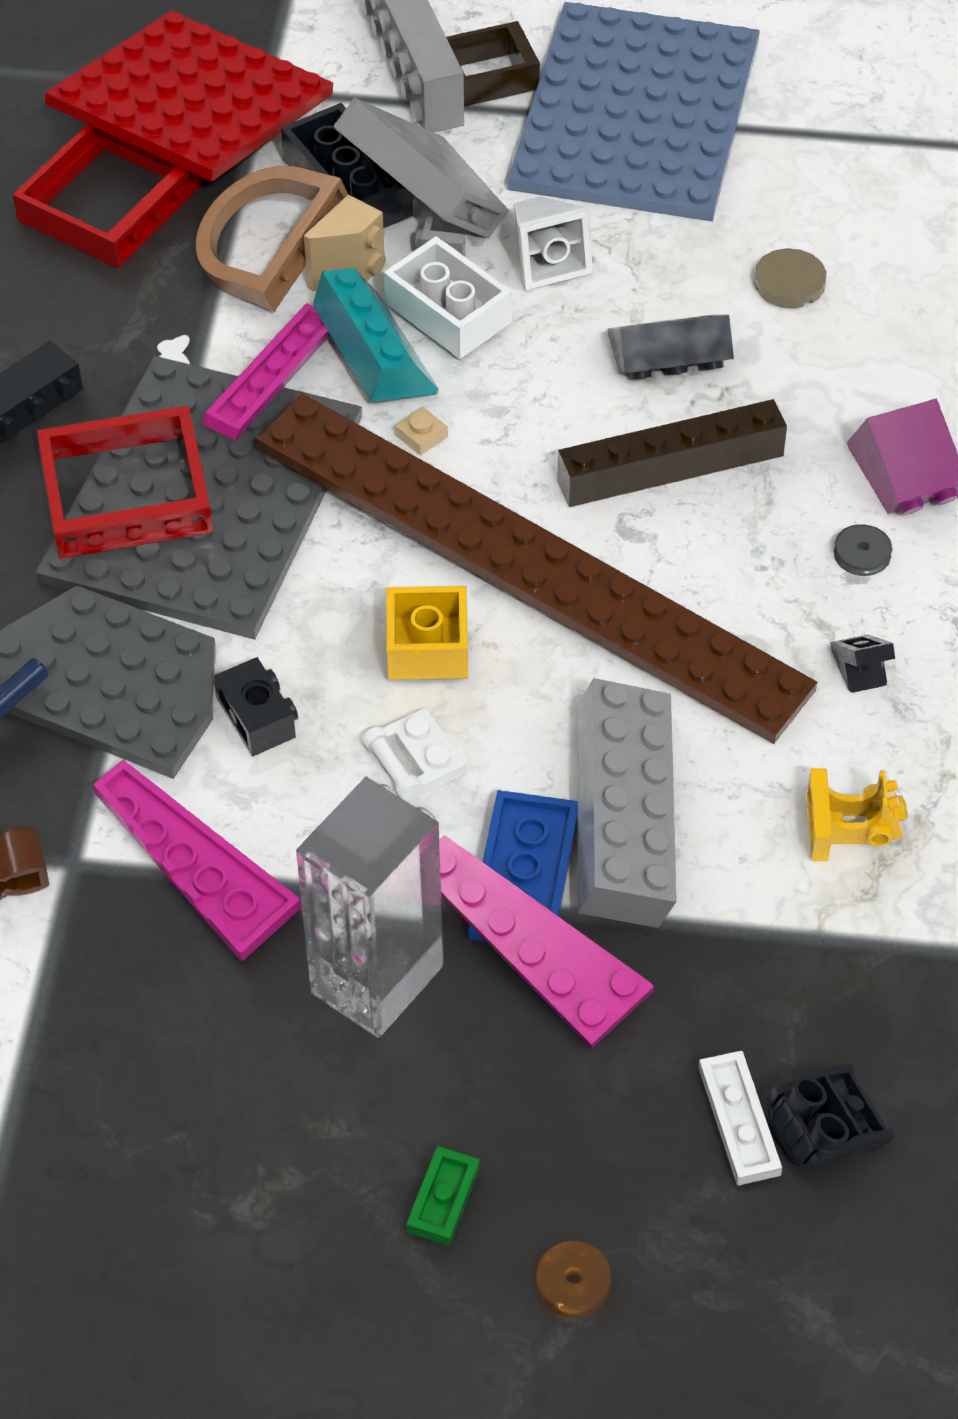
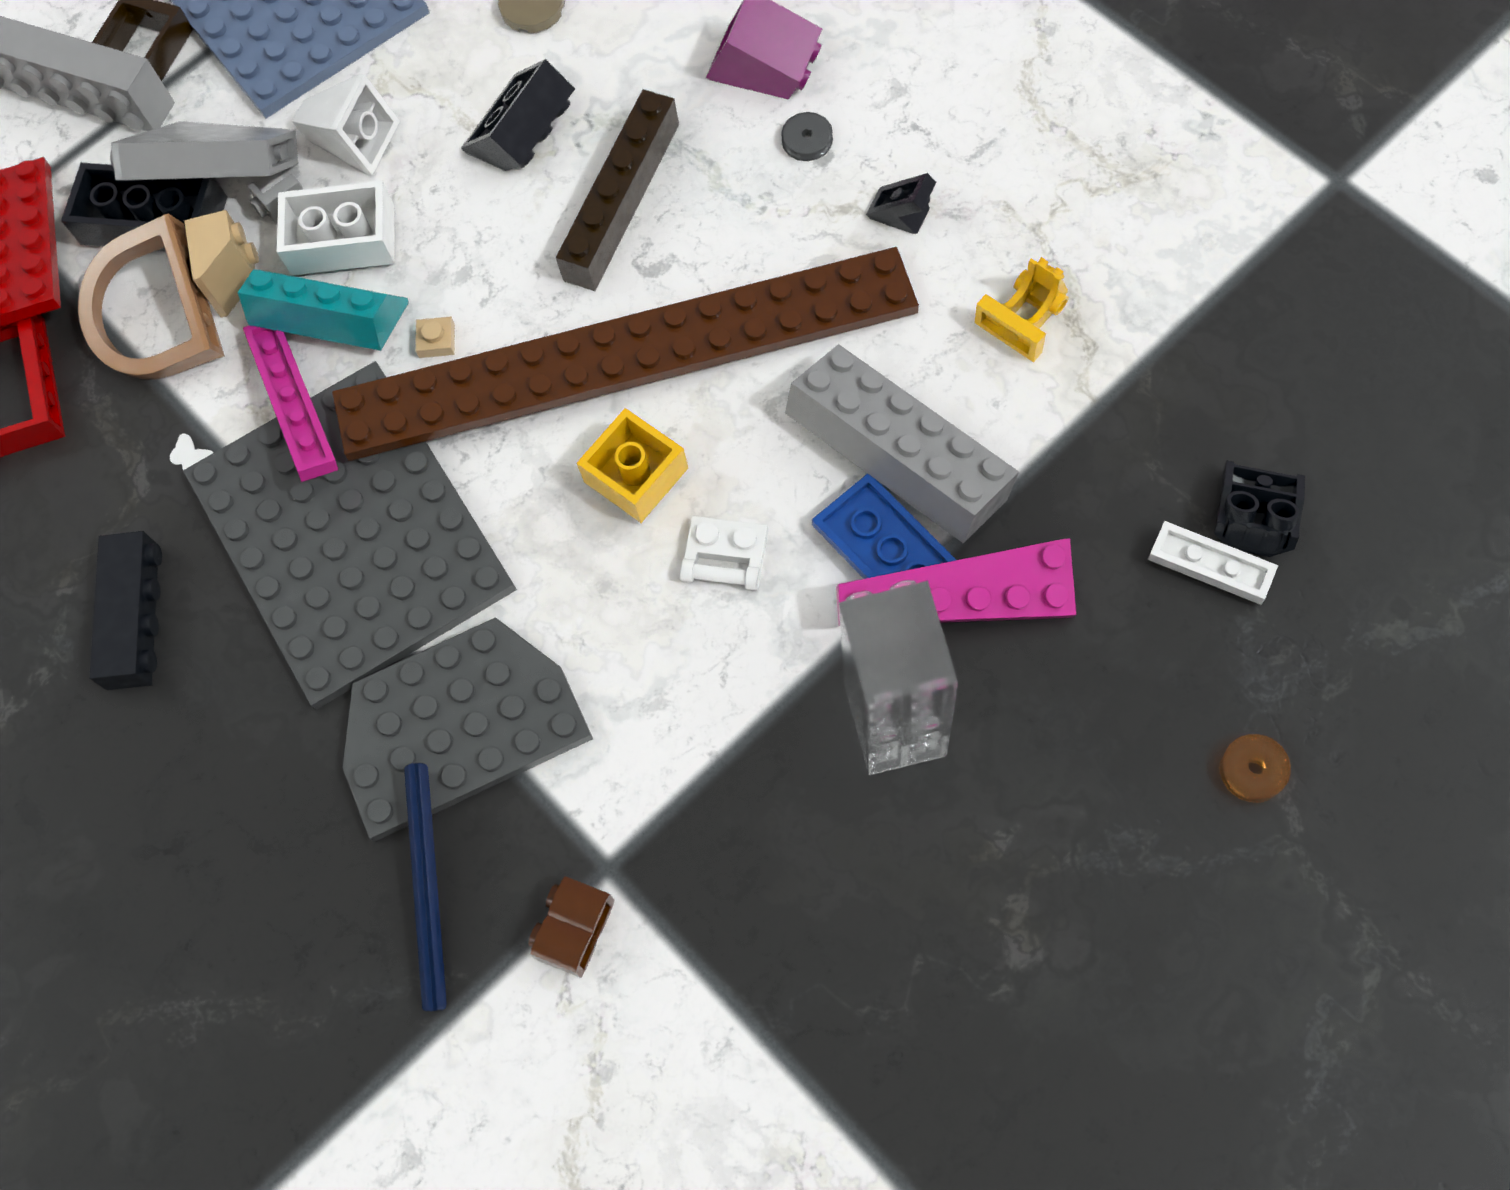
camera: 40 degrees left, 15 degrees up
(134, 525) = (339, 610): red window -> none
(216, 878) = (712, 772): dark pink wing -> none
(256, 706) = (604, 646): black brick -> none
(443, 1196) = (1124, 807): green plate -> none

